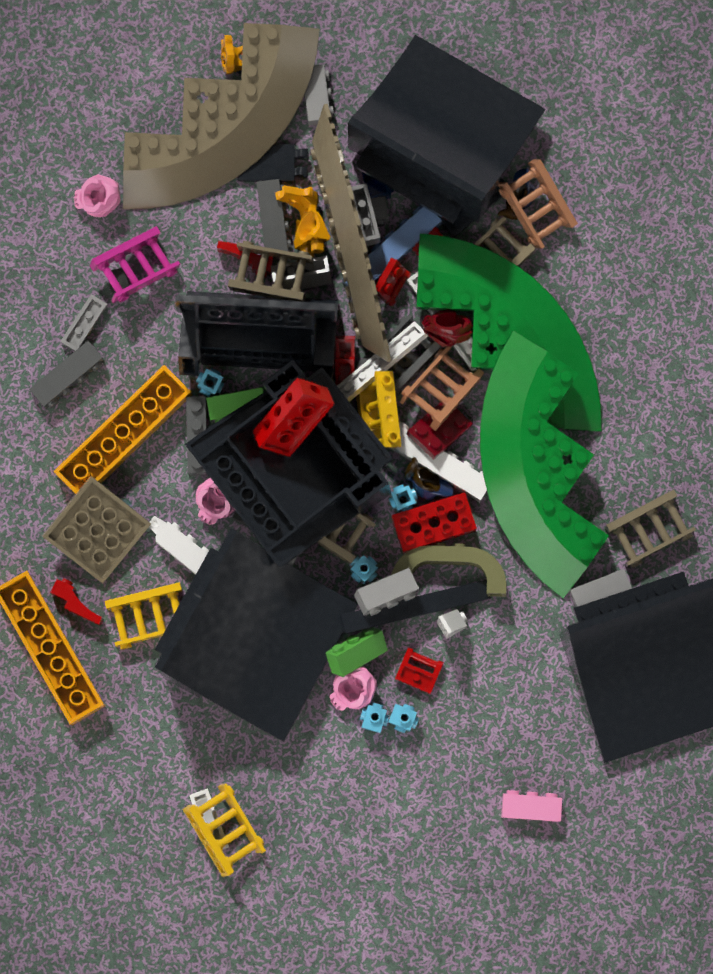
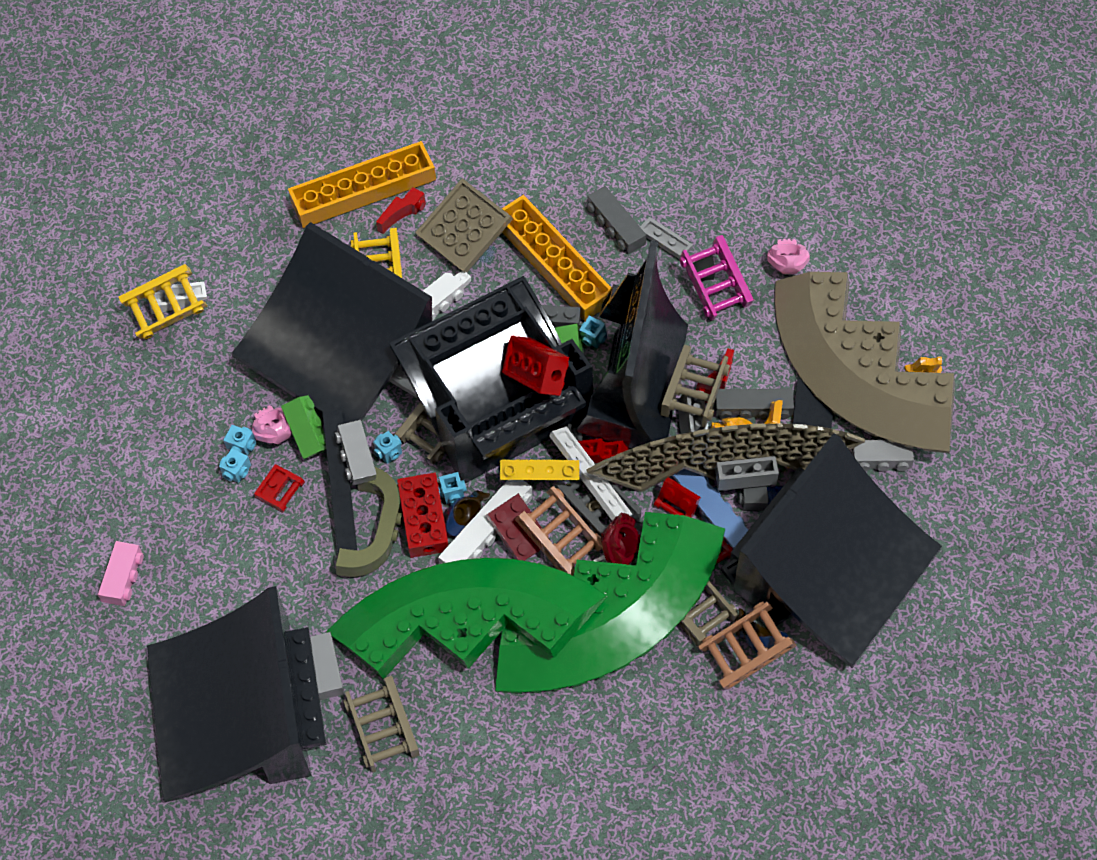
camera: 100 degrees right, 20 degrees down
(452, 623) = (316, 512): white slope -> none

